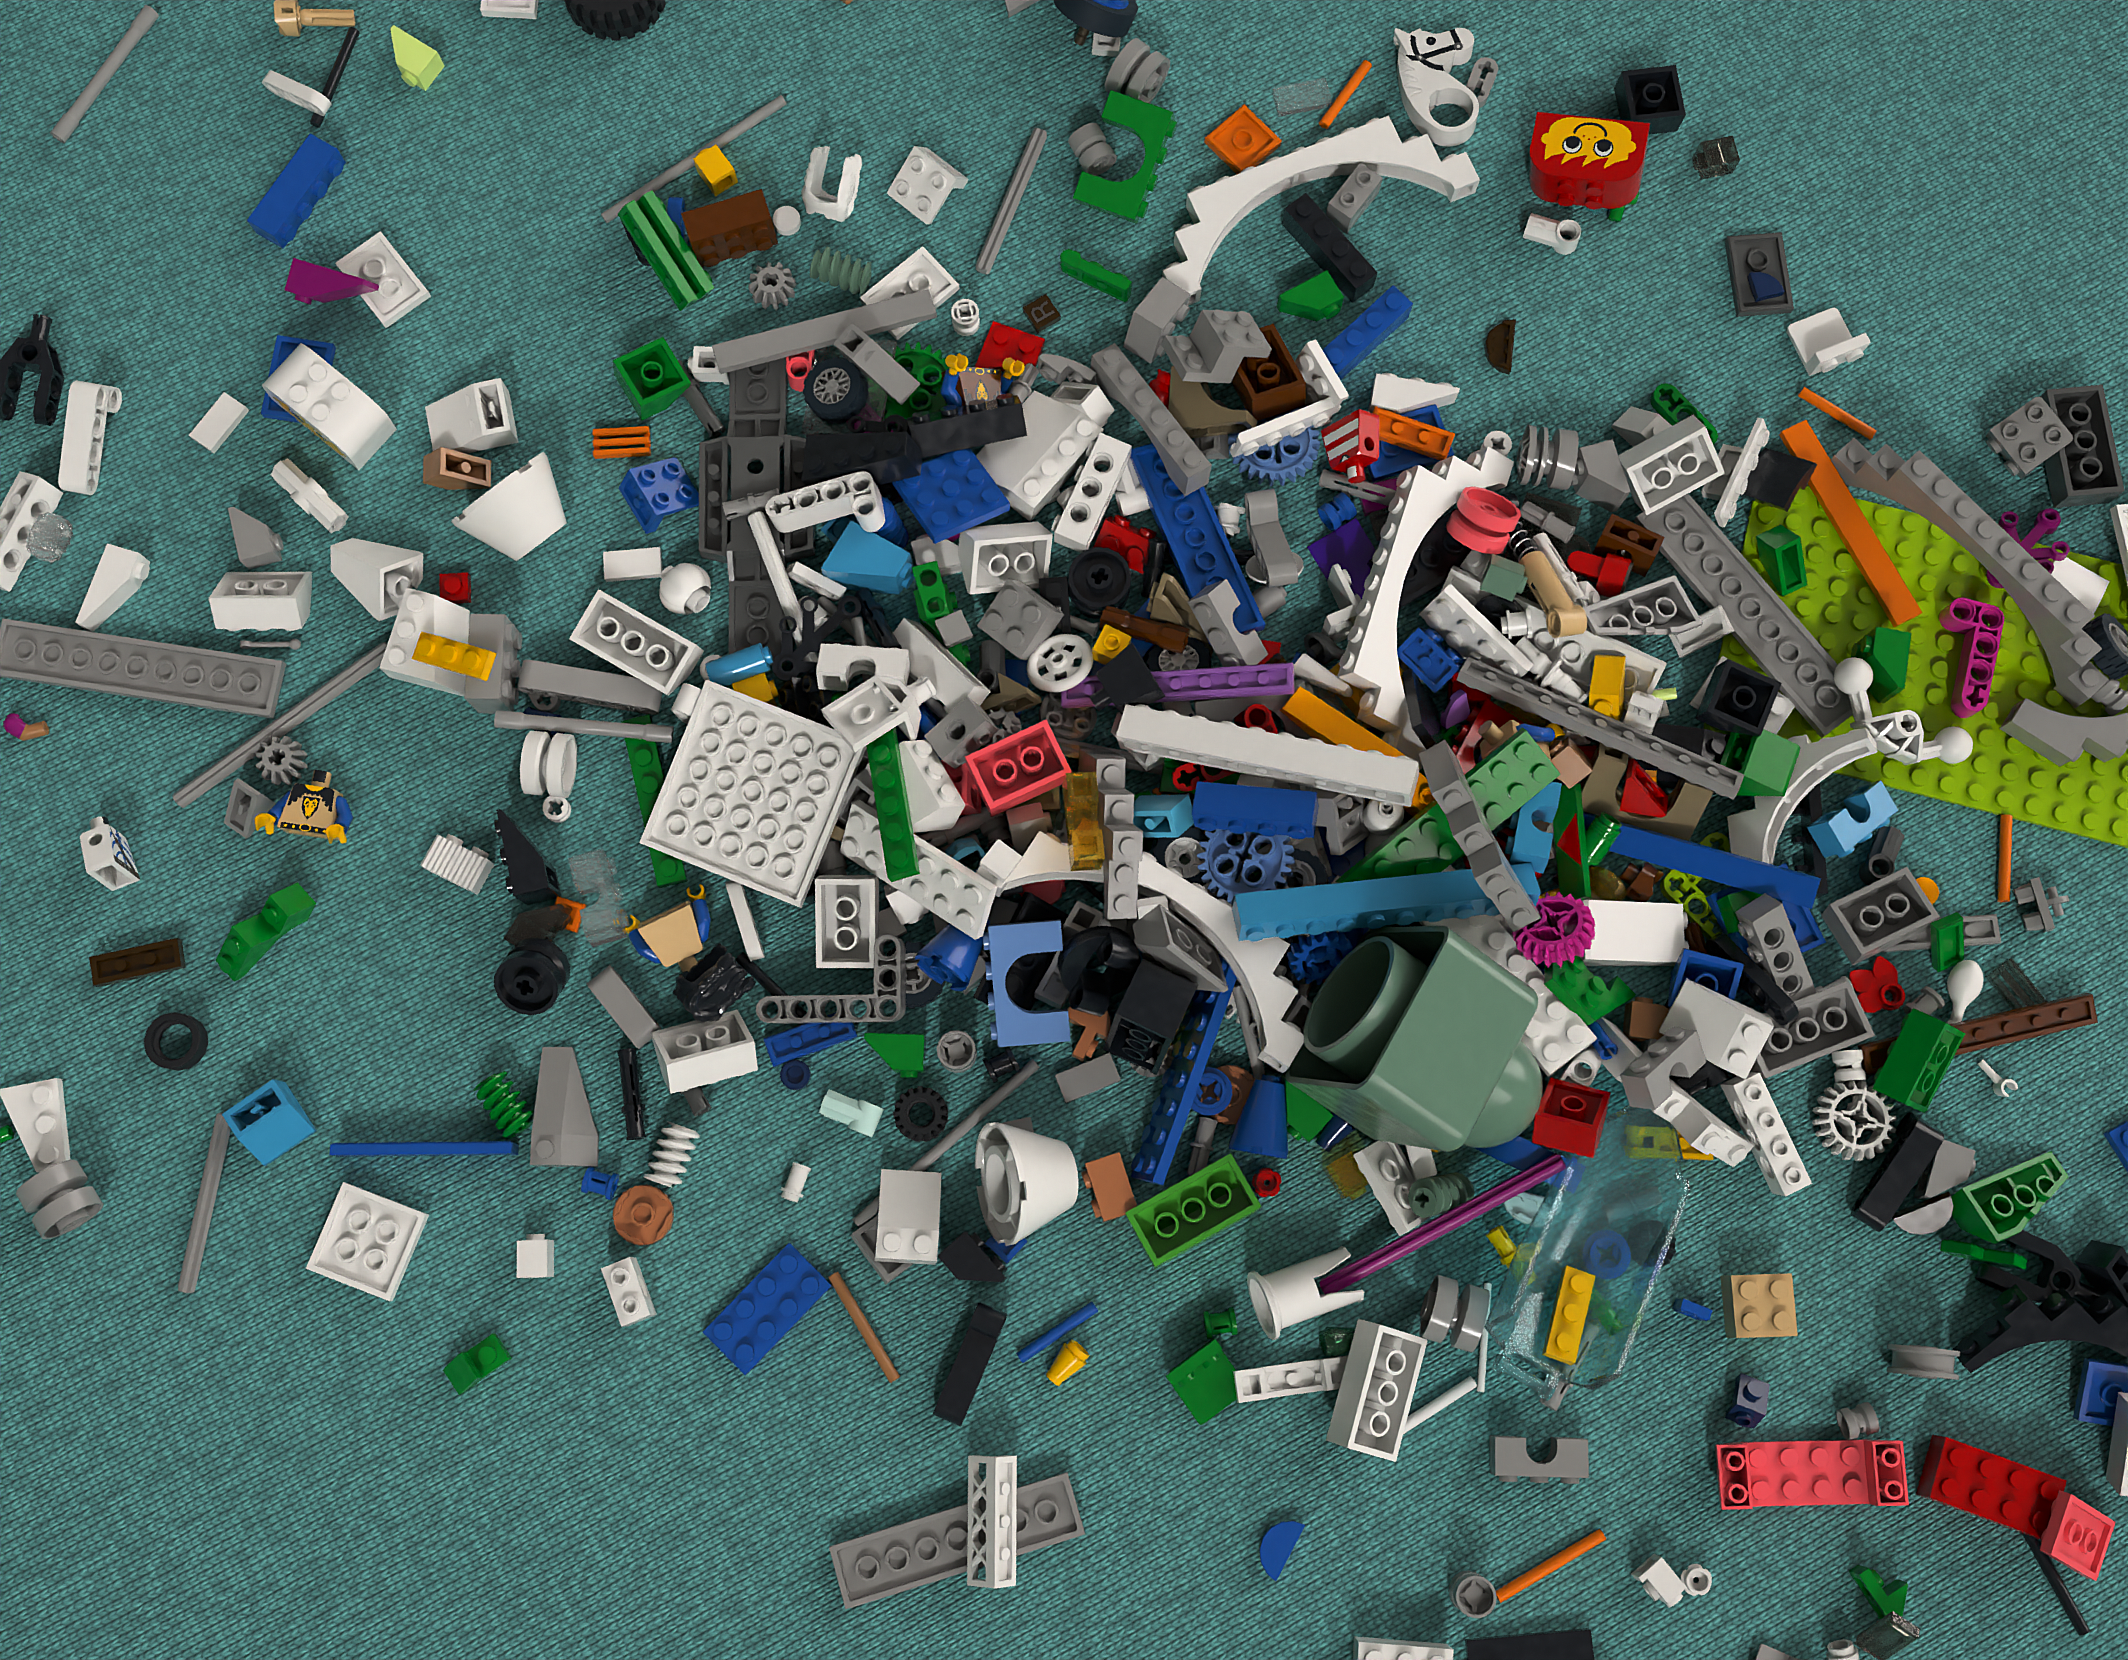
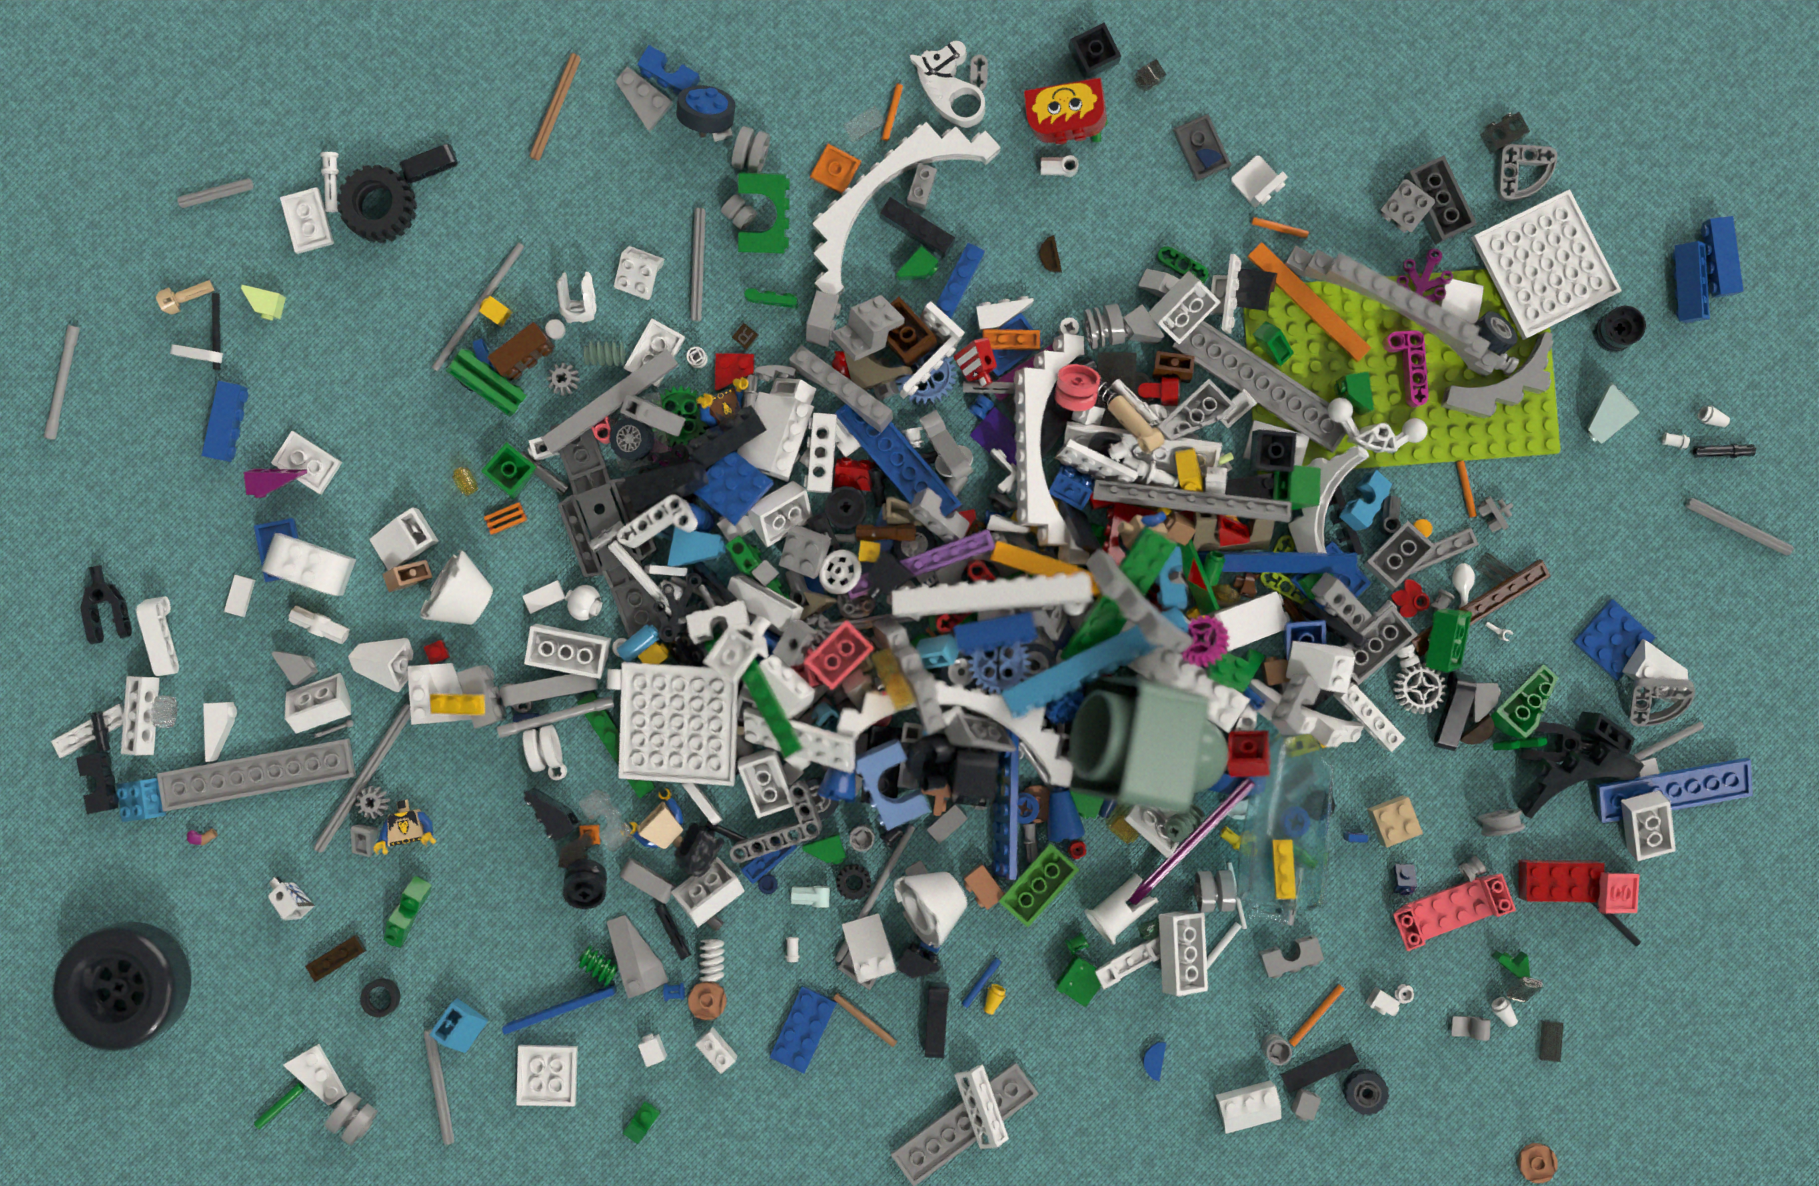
camera: 25 degrees left, 10 degrees up
(458, 864) = (509, 828): white brick -> none
(586, 373) = (465, 481): none -> clear yellow brick
(658, 491) = (543, 544): blue bracket -> none
(1456, 710) = (1099, 516): medium lavender tile -> none
(1503, 578) = (1101, 422): sand green brick -> none
(1547, 521) = (1117, 370): light grey axle -> none
(1947, 941) = (1445, 558): green tile -> none

